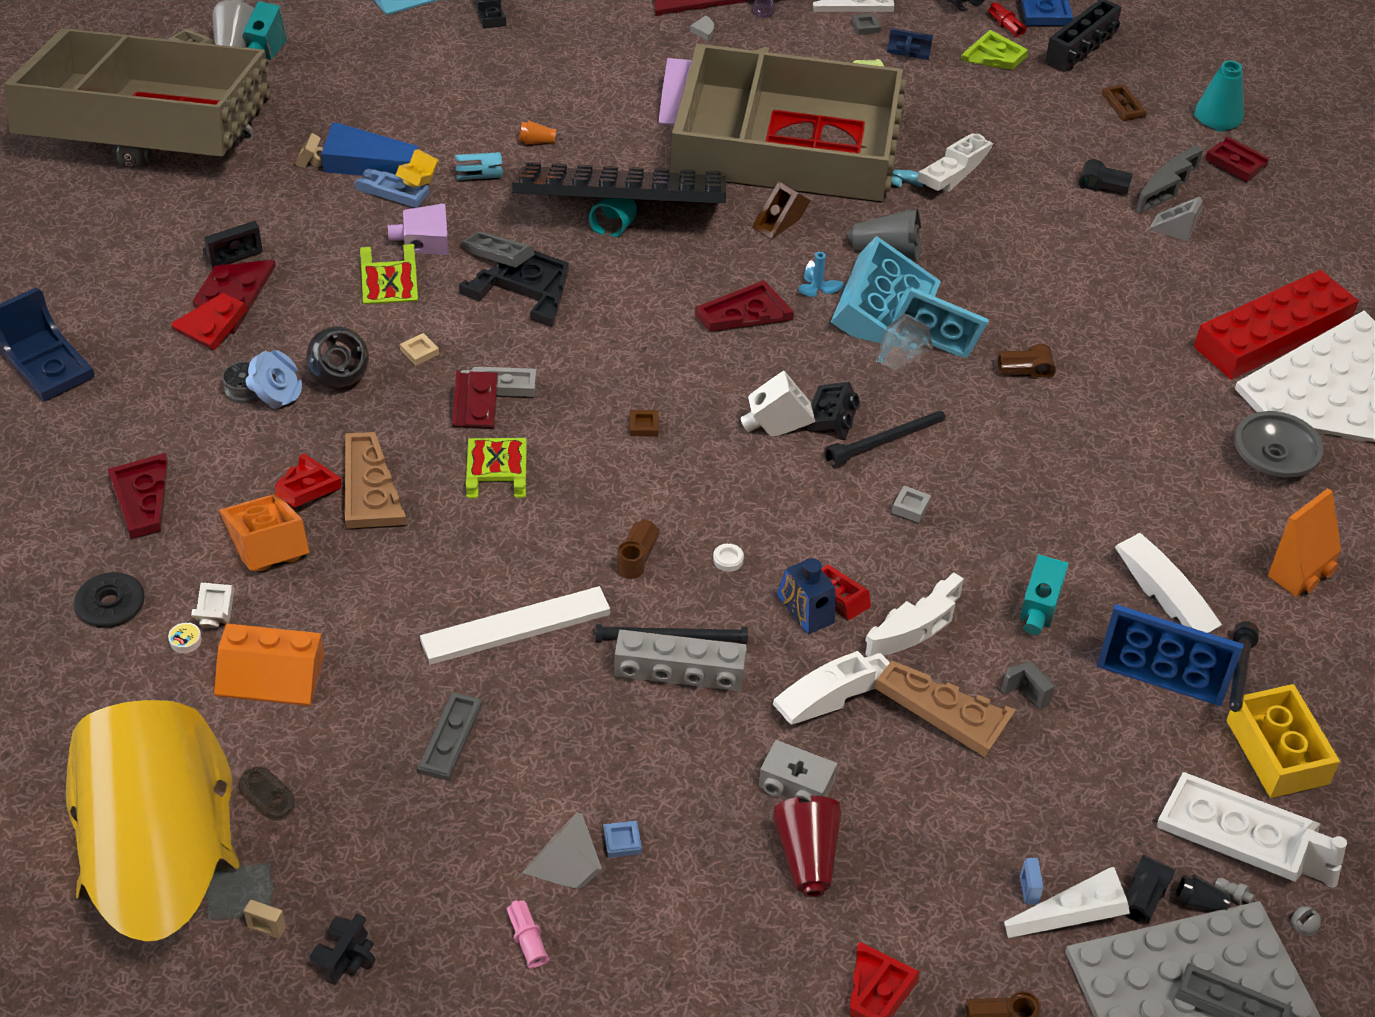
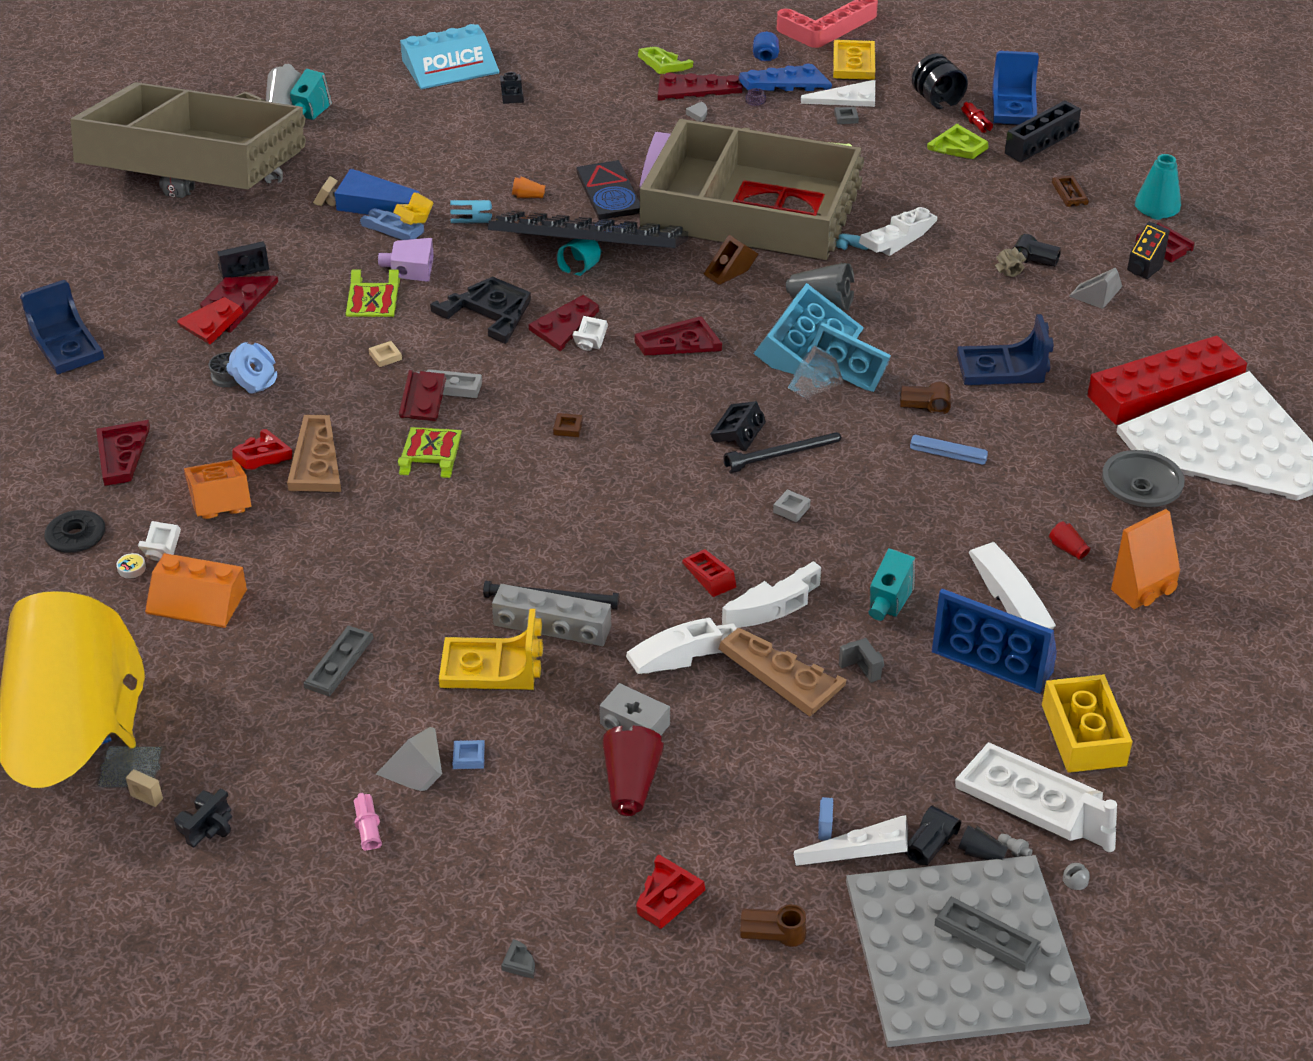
camera: 10 degrees right, 5 degrees down
(265, 791) = (171, 692): clear smoke plate -> none
(332, 375) = (309, 369): black wheel -> none
(497, 248) = (470, 277): dark grey tile -> none
(514, 625) = (415, 577): white tile -> none
(612, 296) = (561, 323): none -> dark red wing
(626, 129) = (608, 189): none -> black tile
(628, 722) = (493, 661): none -> yellow bracket
(636, 549) = (533, 526): reddish brown piece -> none
(646, 309) = (590, 333): none -> white bracket
(728, 557) = (617, 537): white tile -> none
(778, 407) = (687, 417): white torso -> none
(808, 595) = (677, 562): dark blue torso -> none
(814, 274) = (750, 317): dark azure plant -> none
(910, 44) = (881, 132): dark blue hips -> none
(1063, 422) = (949, 449): none -> medium blue axle
(1082, 193) = (1010, 262): none -> dark tan gear
(1108, 314) = (1011, 363): none -> dark blue bracket
(1167, 180) = (1094, 254): dark grey slope -> none
(1214, 522) = (1068, 539): none -> red cone
(1226, 172) = (1149, 251): none -> black slope
(1247, 634) = (1074, 637): black piece -> none

